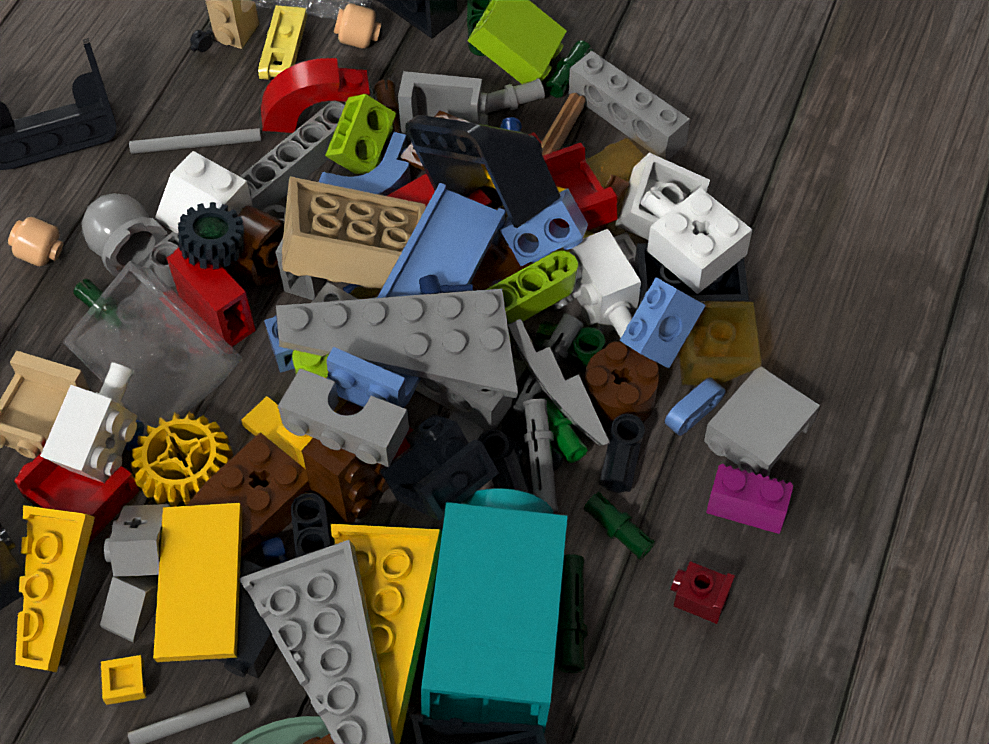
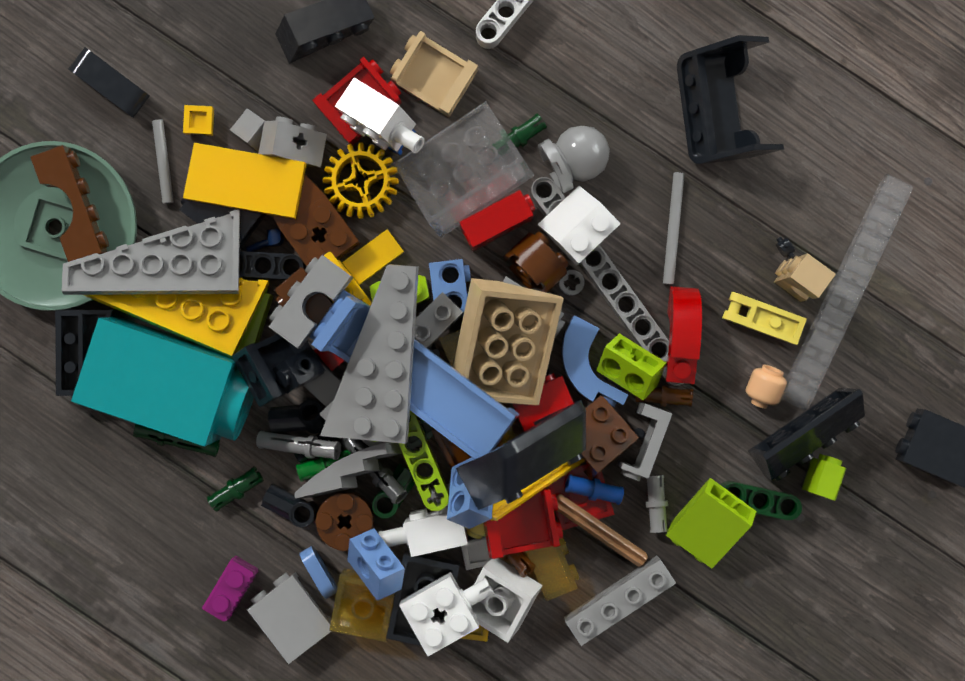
camera: 100 degrees right, 30 degrees up
(35, 241) = (590, 87): light nougat head -> none
(53, 568) = (281, 78): yellow wing -> none
(211, 235) = (526, 227): black wheel -> none
(430, 285) = (417, 389): dark blue hand -> none
(561, 77) = (678, 561): dark green pin -> none
(706, 602) = (165, 545): dark red brick -> none

